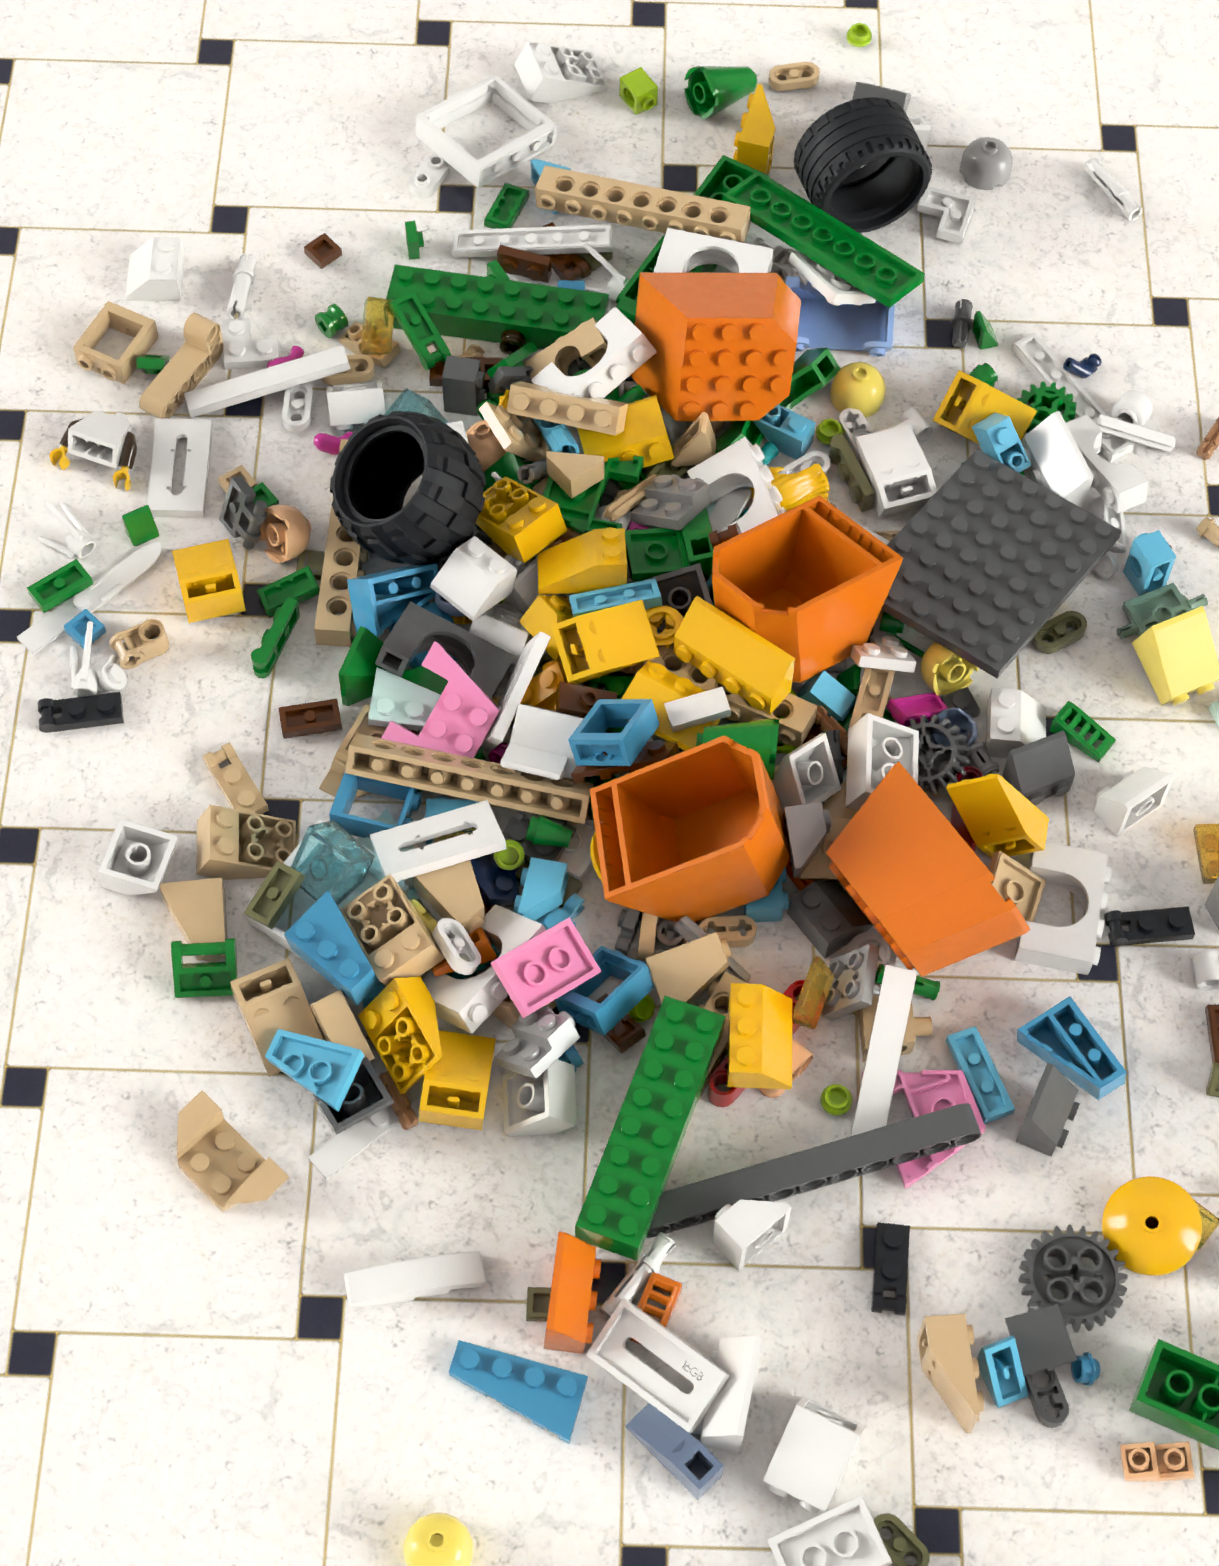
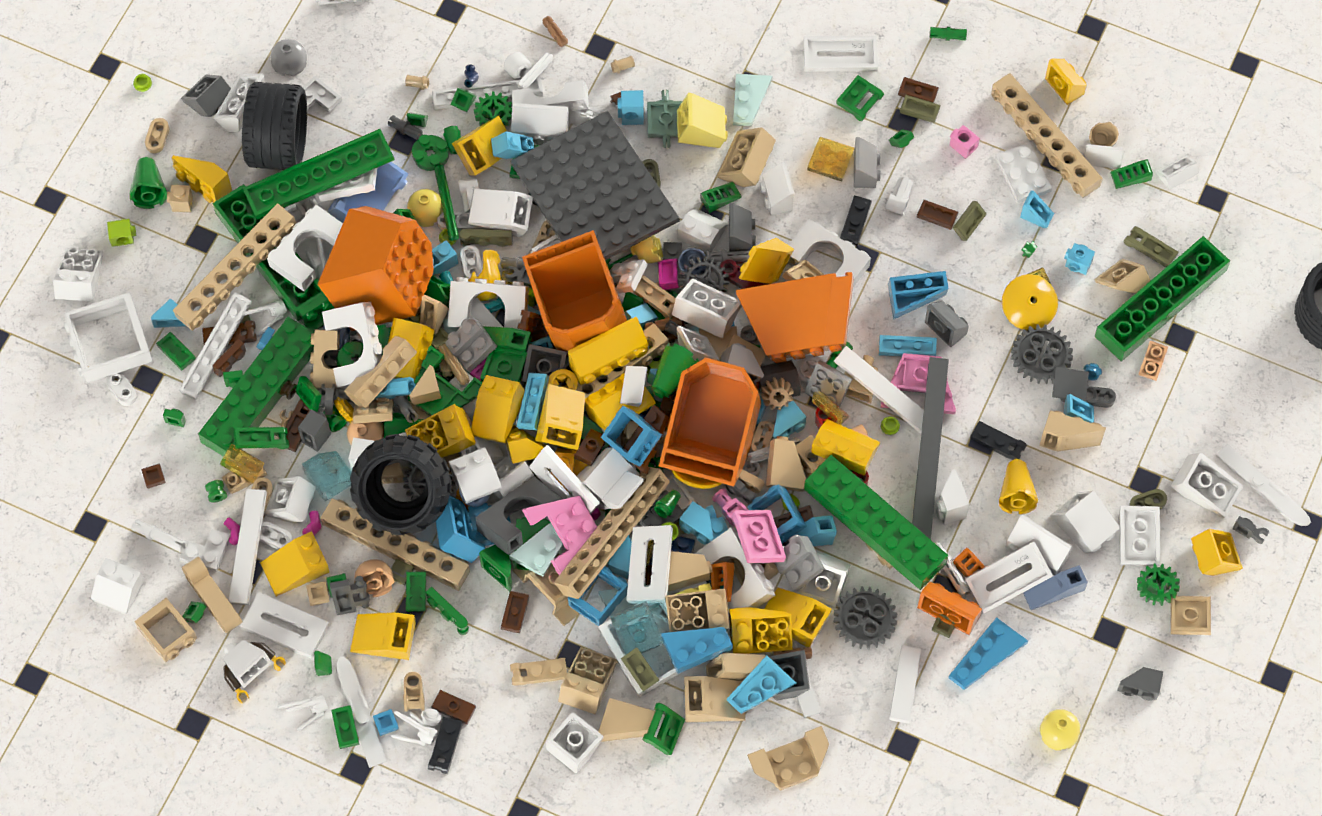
camera: 65 degrees left, 5 degrees up
(141, 701) = (453, 707): none -> reddish brown plate
(270, 445) = (295, 564): none -> yellow slope
(456, 946) = (724, 578): white plate -> none
(470, 1179) = (872, 602): none -> dark grey gear
(595, 928) = (728, 505): none -> bright pink connector
(605, 1057) = (820, 530): none -> medium azure slope
(718, 130) = (180, 198): none -> tan brick
(767, 952) = (789, 420): none -> medium azure slope
(794, 911) = (784, 393): none -> tan gear
(819, 1323) = (1018, 489): none -> yellow cone
(875, 407) = (446, 203): none -> green axle
(942, 353) = (426, 143): none -> green plate
(1040, 317) = (415, 81): none -> tan pin
(1042, 368) = (463, 99): none -> green slope
(1164, 742) = (746, 157): none -> tan slope

